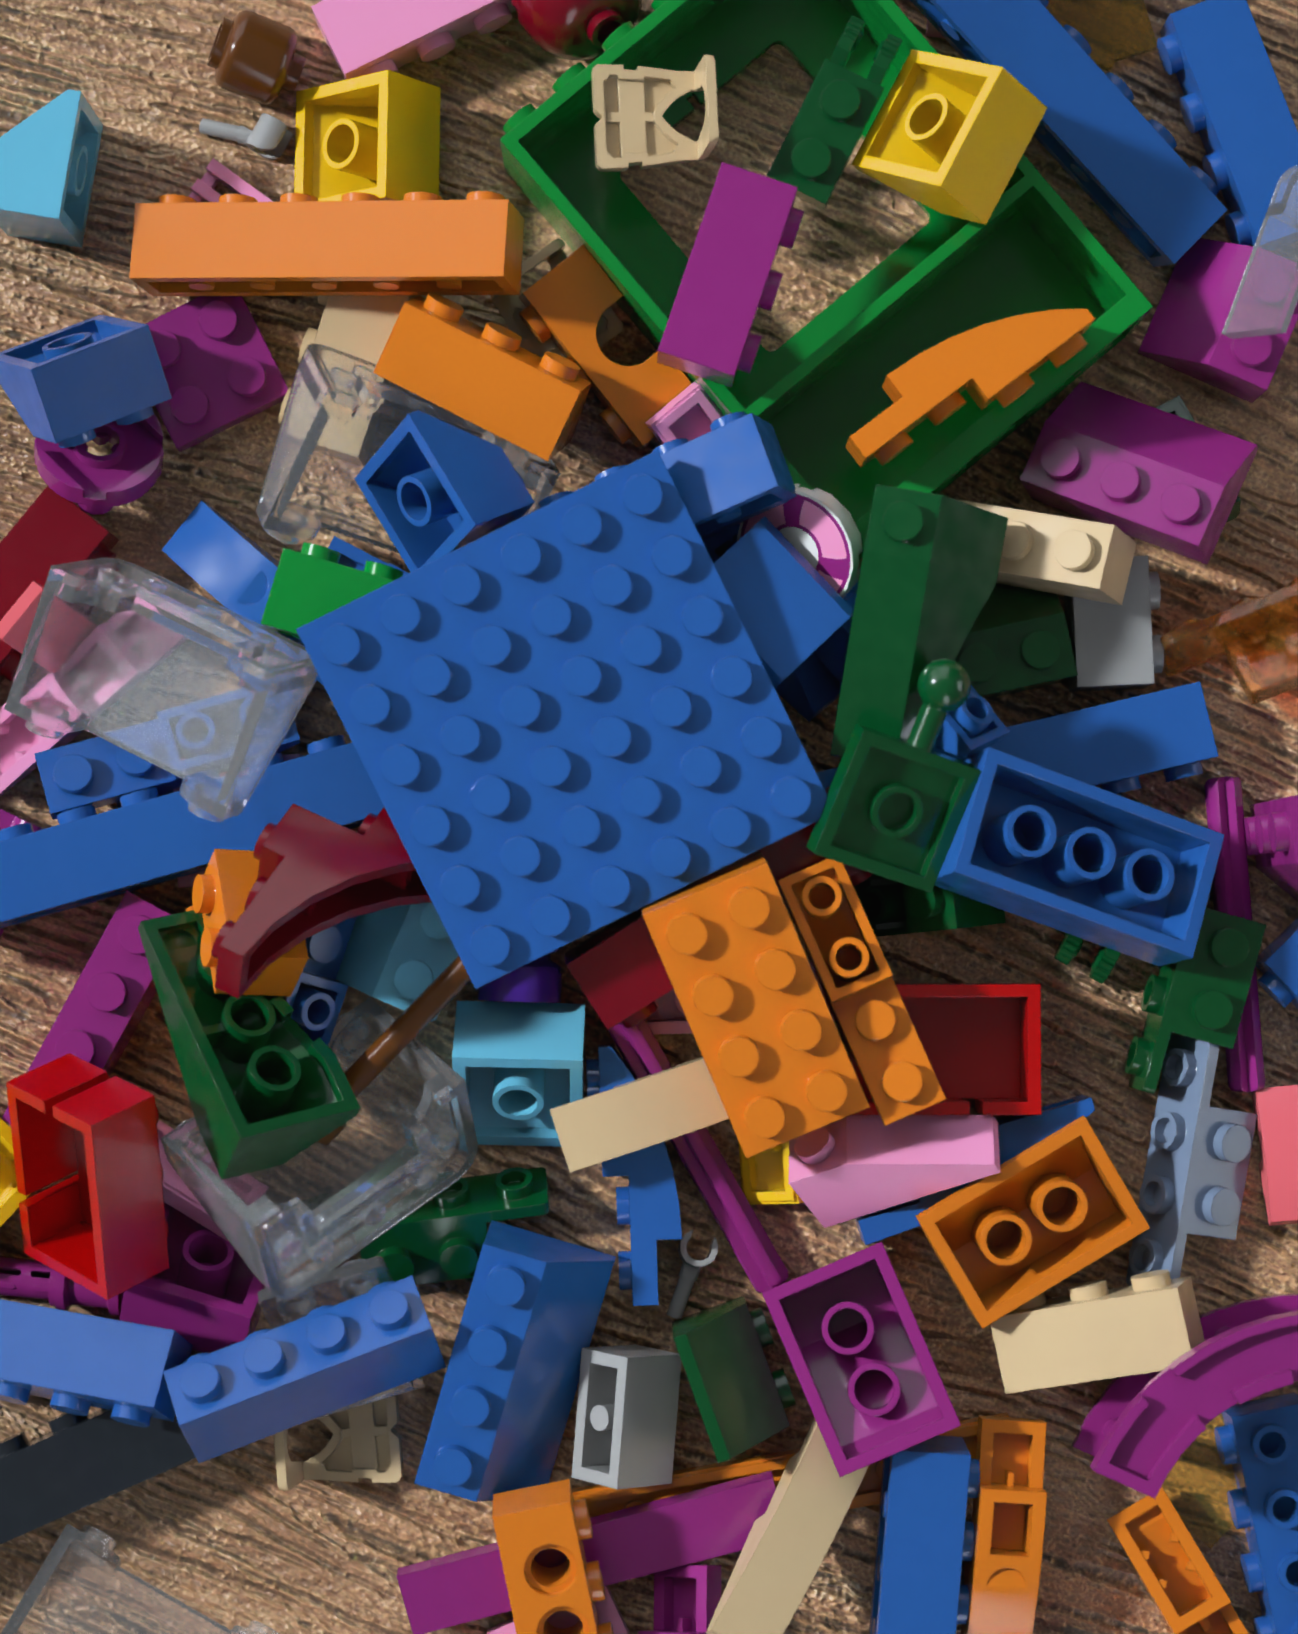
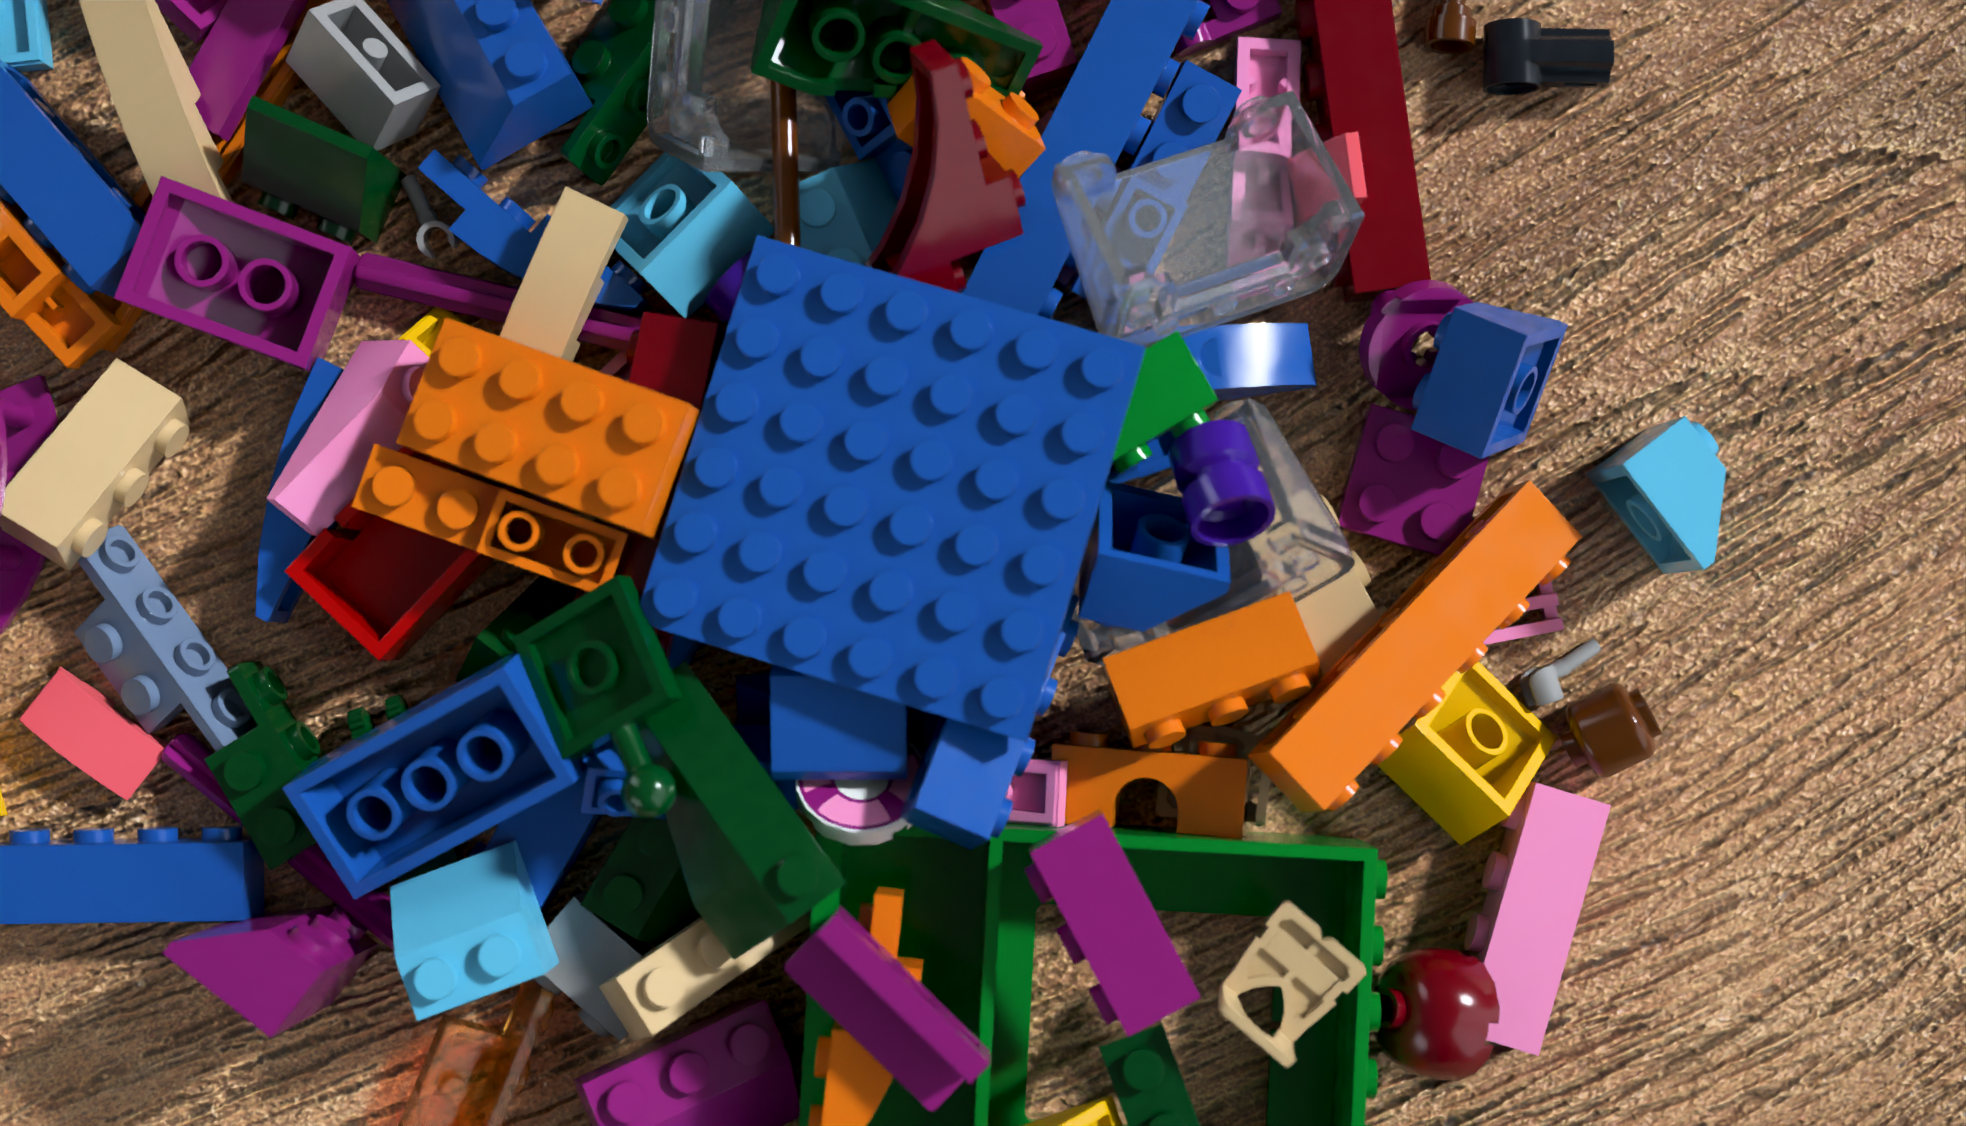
camera: 135 degrees right, 0 degrees up
(346, 485) = (1221, 483): none -> dark purple wheel
(937, 371) = (887, 1010): none -> magenta panel
(1032, 1222) = (209, 489): orange slope -> none
(1169, 734) = (468, 931): none -> medium azure slope

